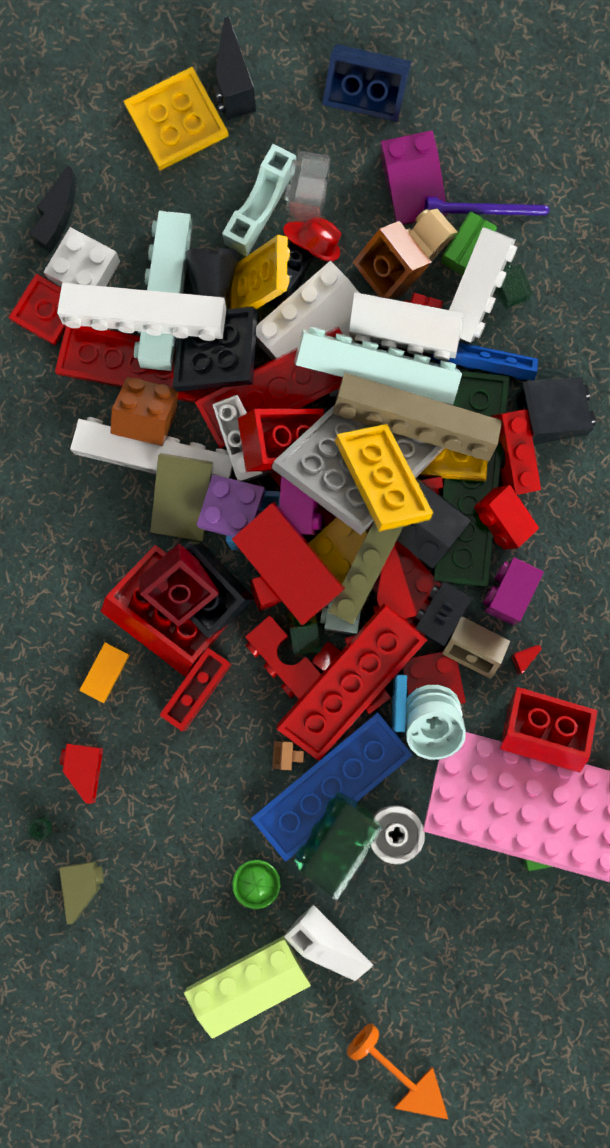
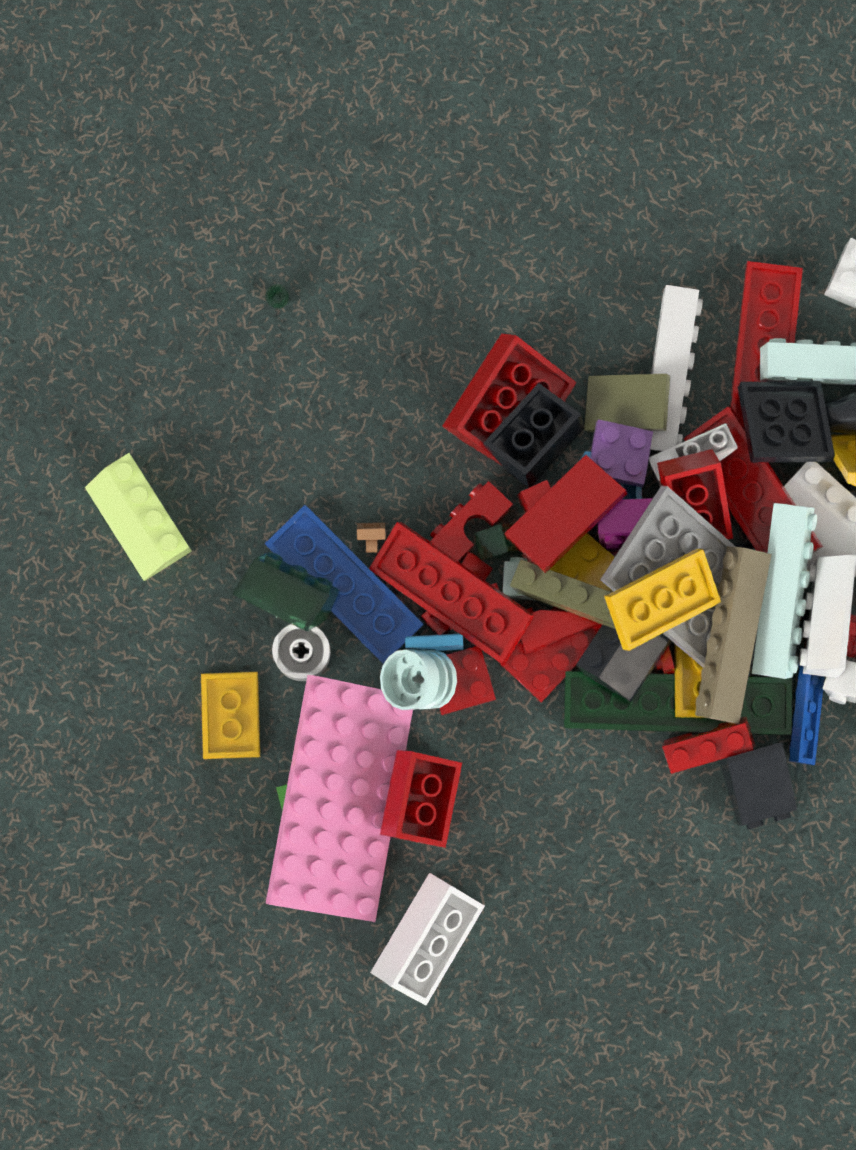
camera: 75 degrees right, 0 degrees up
(38, 310) = (813, 244): red plate -> none
(79, 886) = (222, 341): olive slope -> none
(82, 769) = (340, 332): red slope -> none
(104, 672) = (439, 344): light orange tile -> none
(142, 311) = (815, 342): white brick -> none
(144, 411) = (713, 356): dark orange brick -> none
(177, 585) = (533, 406): dark red slope -> none
(195, 689) = (430, 437): red brick -> none
(256, 884) = (239, 516): bright green hat -> none
(325, 945) = (186, 589): white slope -> none
(423, 1096) = (43, 701): orange piece -> none
(442, 613) = (530, 679): black brick -> none
(450, 909) = (230, 715): none -> yellow tile
(476, 647) = (499, 719): dark tan brick -> none
(506, 517) = (637, 739): red brick -> none
(513, 591) = (560, 751): magenta brick -> none
(524, 658) = (494, 772): red slope -> none

